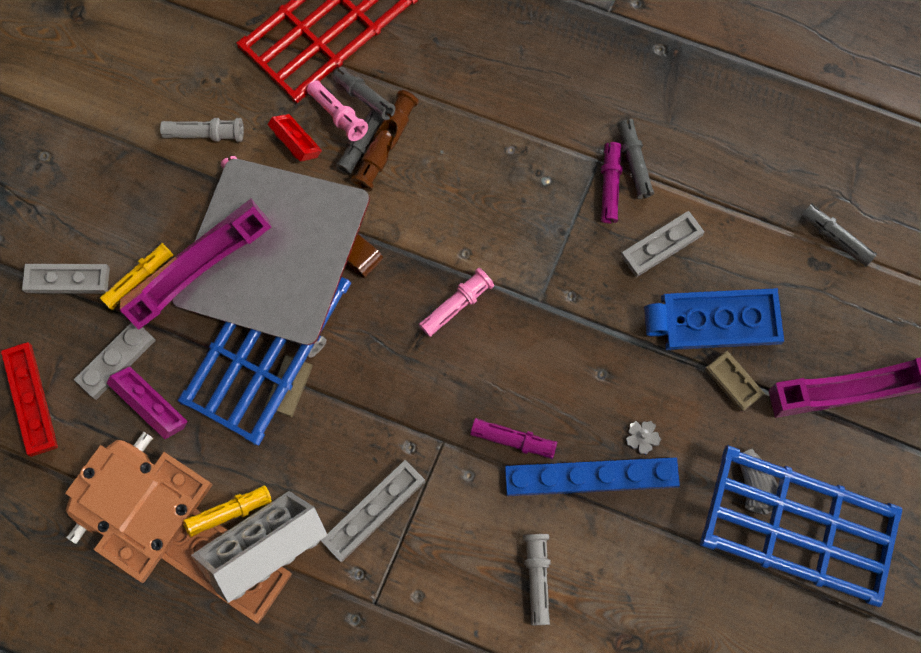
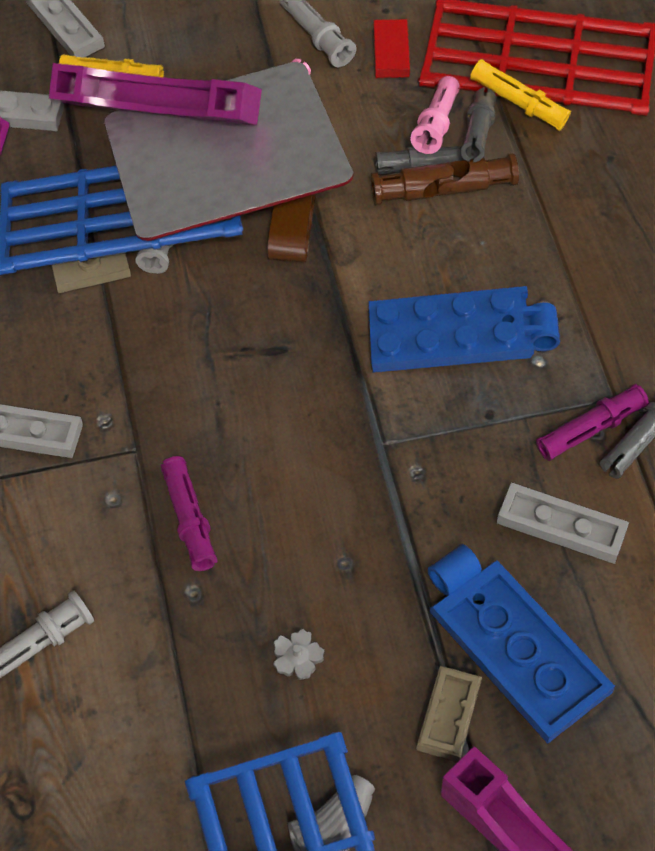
camera: 55 degrees right, 15 degrees down
(255, 98) = (391, 48): none -> red tile
(294, 137) = (375, 101): red plate -> none
(365, 51) = (528, 99): none -> yellow pin
(465, 295) = (326, 360): bright pink pin -> none
(497, 209) = (459, 329): none -> blue hinge
(592, 476) = (206, 630): blue plate -> none

